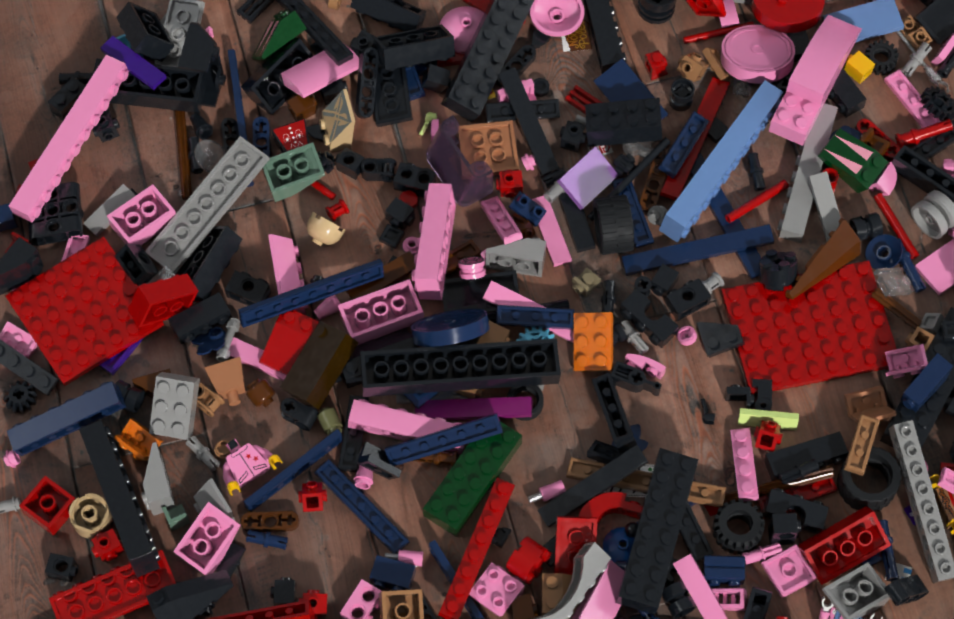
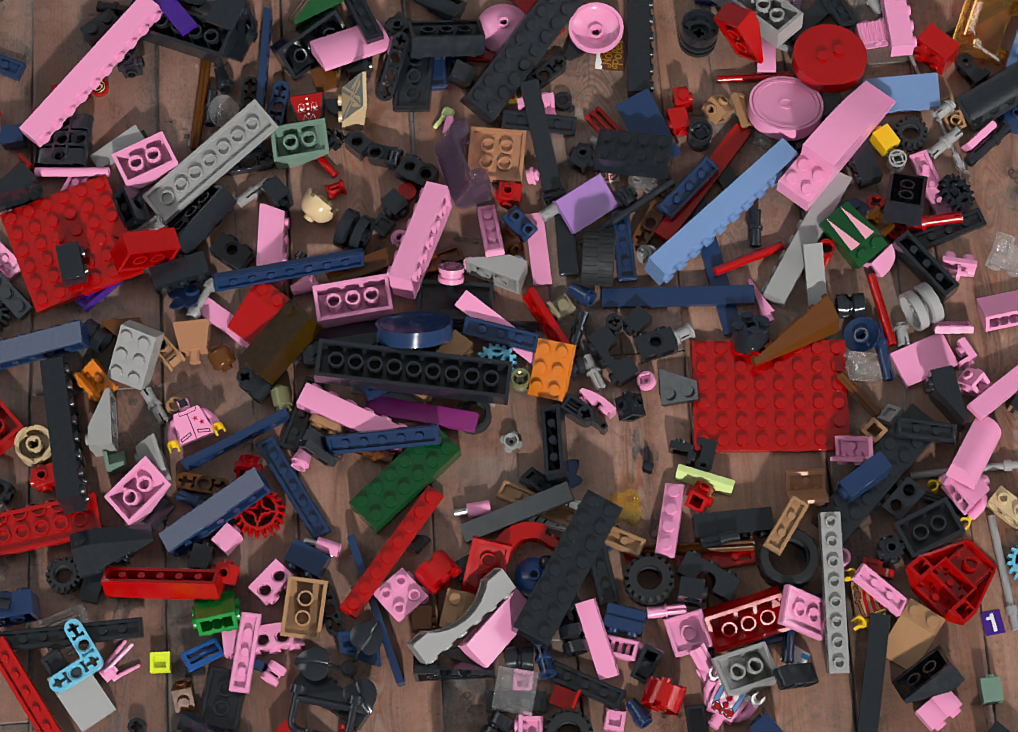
camera: 15 degrees right, 5 degrees up
(70, 240) = (71, 171): none -> bright pink piece
(81, 158) = (102, 89): none -> tile
(90, 327) = (72, 264): none -> black brick
(253, 204) = (264, 166): none -> black beam
(264, 219) = (242, 200): none -> light grey pin
(281, 223) = (277, 194): none -> black brick
(289, 545) = (215, 512): none -> dark blue brick
(307, 570) = (227, 538): none -> bright pink brick
(326, 538) = (267, 513): none -> red gear
(366, 245) = (353, 230): none -> black wheel
(381, 438) = (319, 422): none -> medium nougat plate
(565, 354) = (519, 376): none -> olive wheel
(568, 414) = (513, 436): none -> light grey plate
(570, 291) = (543, 316): none -> red tile
(604, 264) = (582, 294): none -> dark blue cone
(658, 84) = (678, 121): none -> red brick
(678, 362) = (630, 406): none -> black brick
(705, 462) = (630, 510): none -> clear yellow plate
(782, 243) = (764, 307): none -> bright pink piece
(811, 595) = (701, 660): none -> bright pink piece
(874, 85) = (894, 164): none -> light grey wheel
(894, 116) = (905, 198): none -> black brick
(897, 527) = (802, 612): none -> bright pink tile
(910, 26) = (947, 107): none -> light grey pin
(922, 244) = (902, 334): none -> light grey pin

